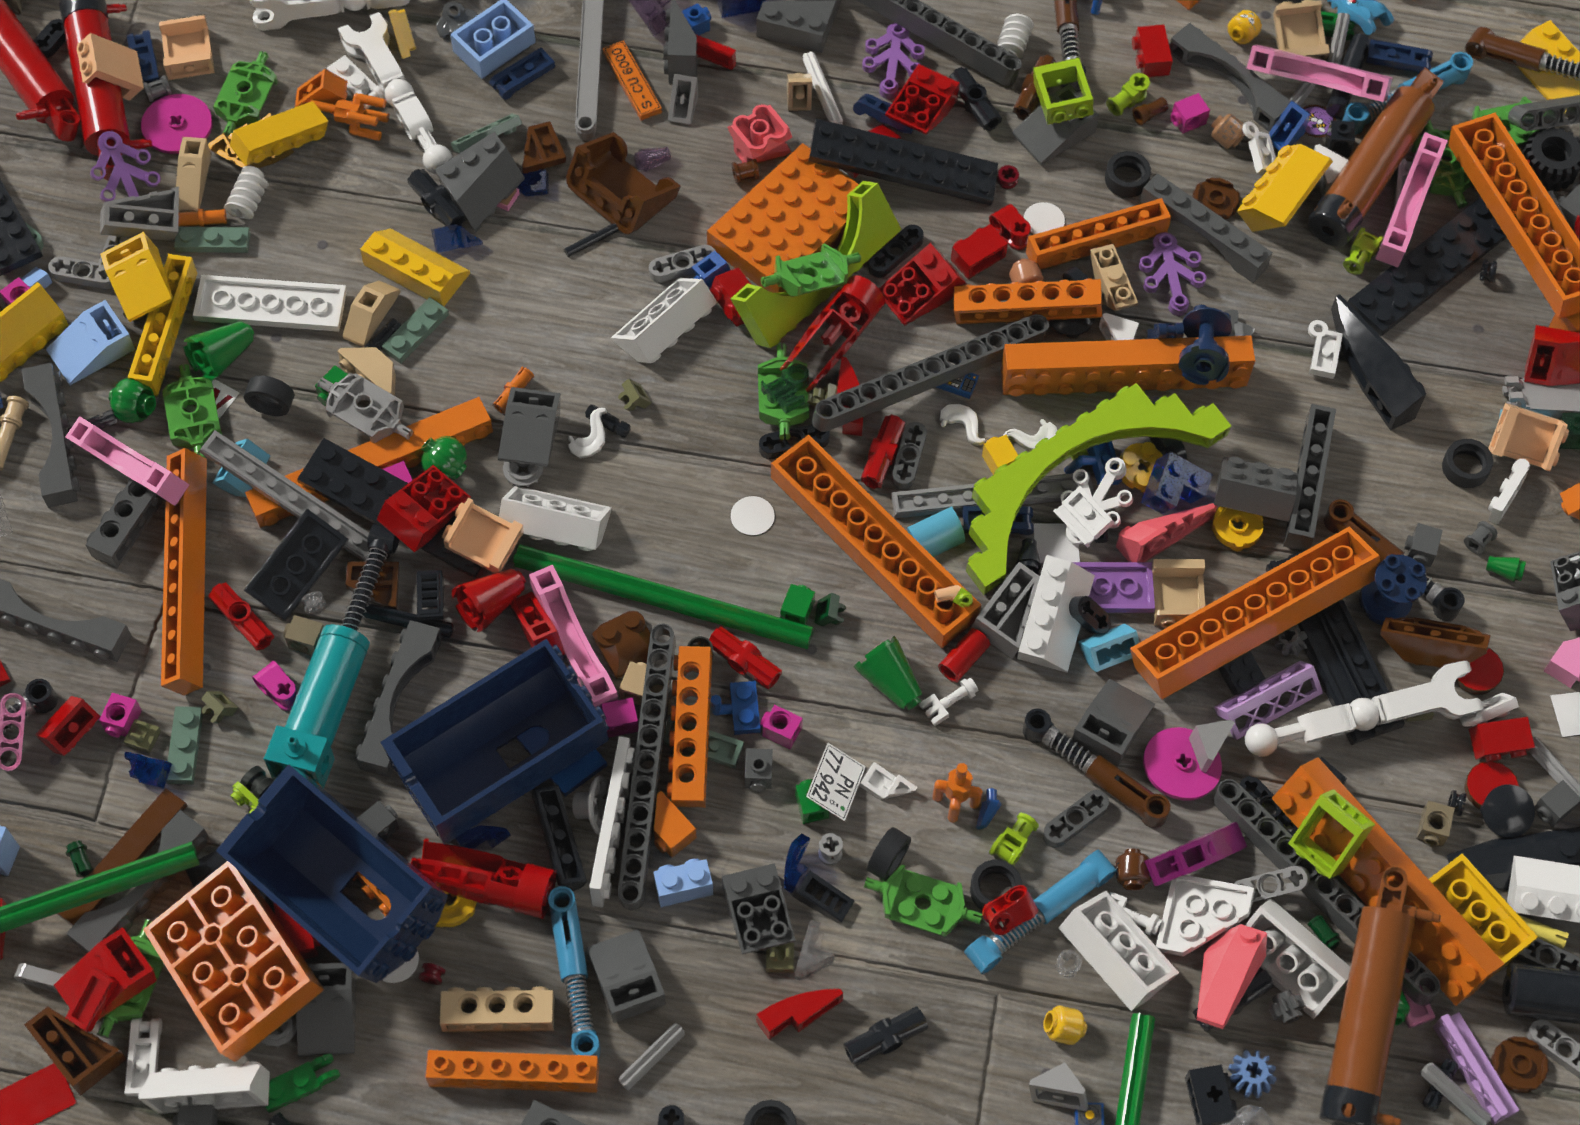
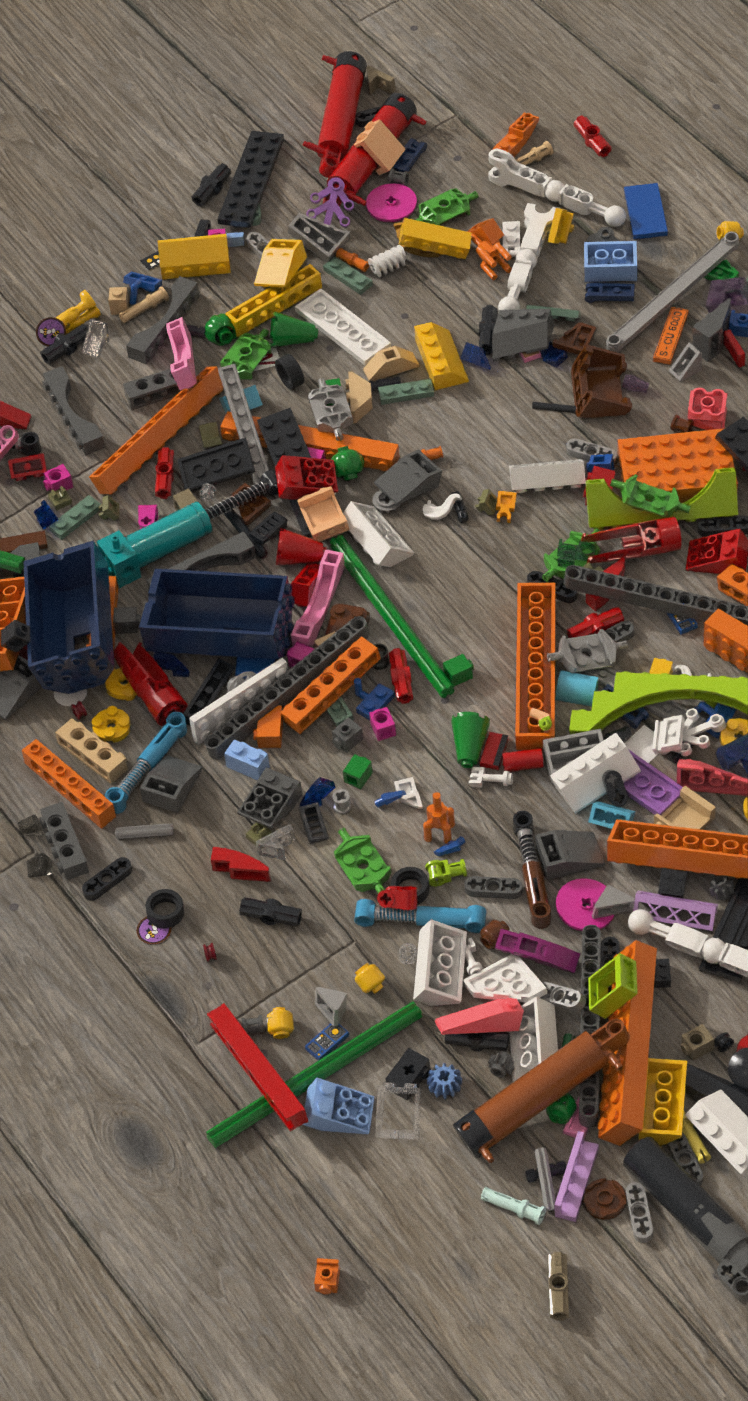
camera: 50 degrees right, 10 degrees down
(90, 343) = (229, 286): light blue slope -> none
(186, 47) = (437, 165): light nougat panel -> none
(192, 172) = (369, 232): tan slope -> none
(245, 533) = (209, 434): none -> olive slope
(305, 950) = (15, 636): none -> black brick
(474, 949) = (111, 715): none -> yellow plate
(655, 383) = (505, 504): none -> light orange plate
(752, 515) = (487, 610): white sticker -> none
(828, 609) = (472, 684): dark green tile -> none
(835, 781) = (379, 769): white sticker -> none
(874, 804) = (387, 798): none -> blue bar
(889, 853) = (366, 815): black tyre -> none
(916, 472) = (599, 647): none -> light grey plate
(923, 667) = (493, 750): none -> red tile
(965, 415) = (666, 640): white piece -> none

